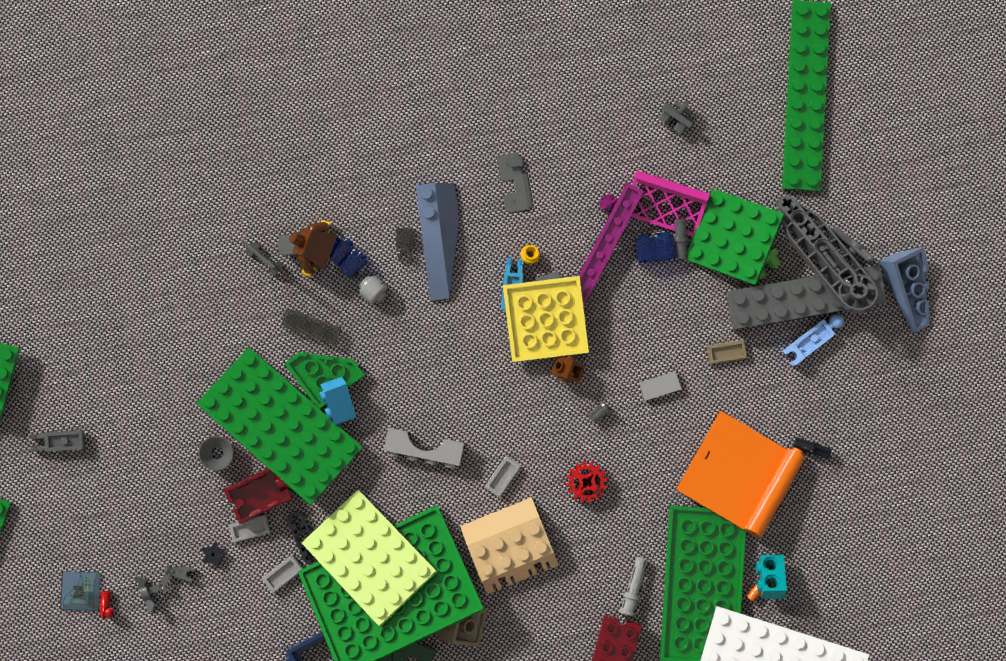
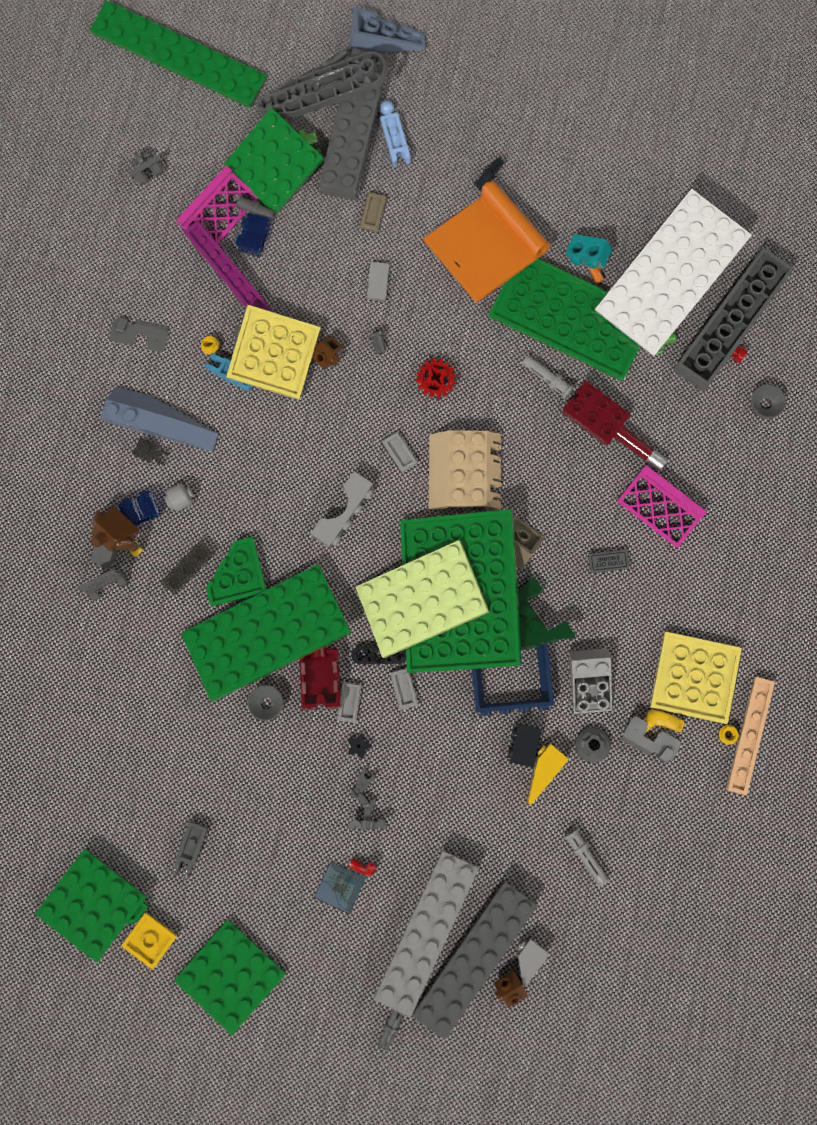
camera: 70 degrees left, 5 degrees down
(338, 401) = (265, 569): dark azure brick -> none
(607, 202) = (193, 258): magenta plate -> none

